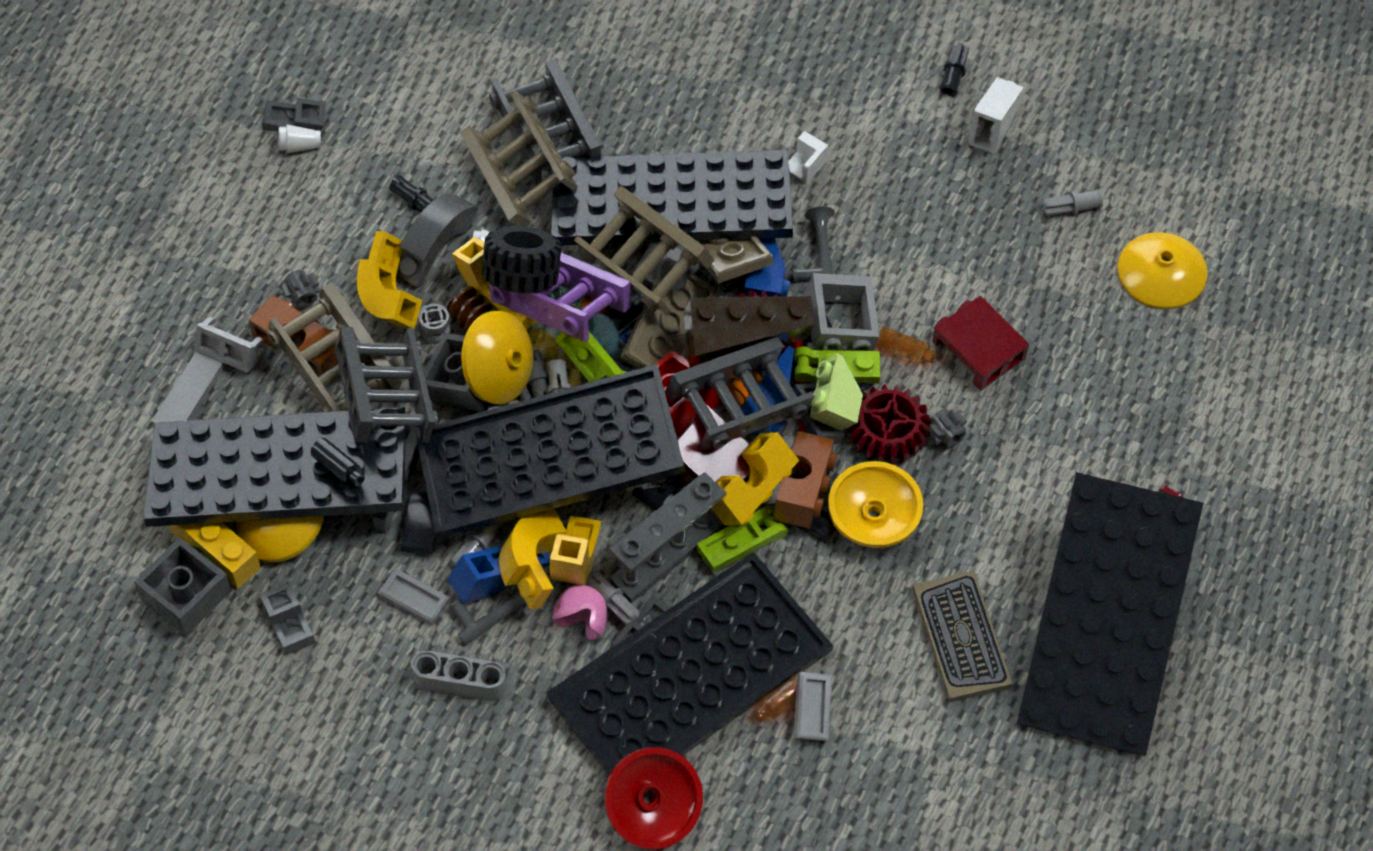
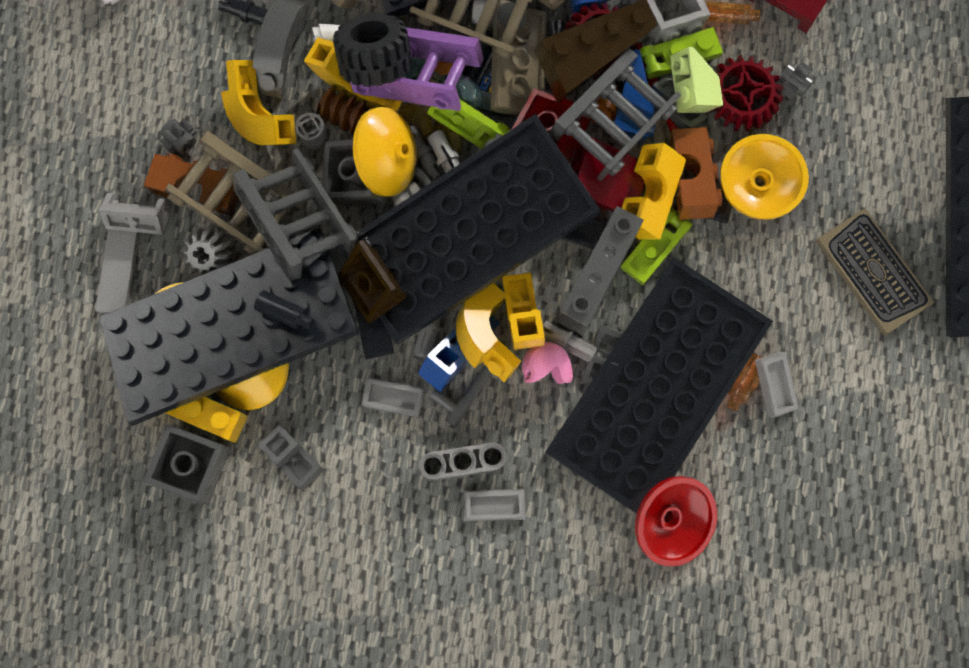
camera: 15 degrees left, 20 degrees up
(288, 388) = (206, 250): none -> light grey gear
(433, 468) = (370, 282): none -> dark brown slope
(475, 731) = (494, 505): none -> light grey tile

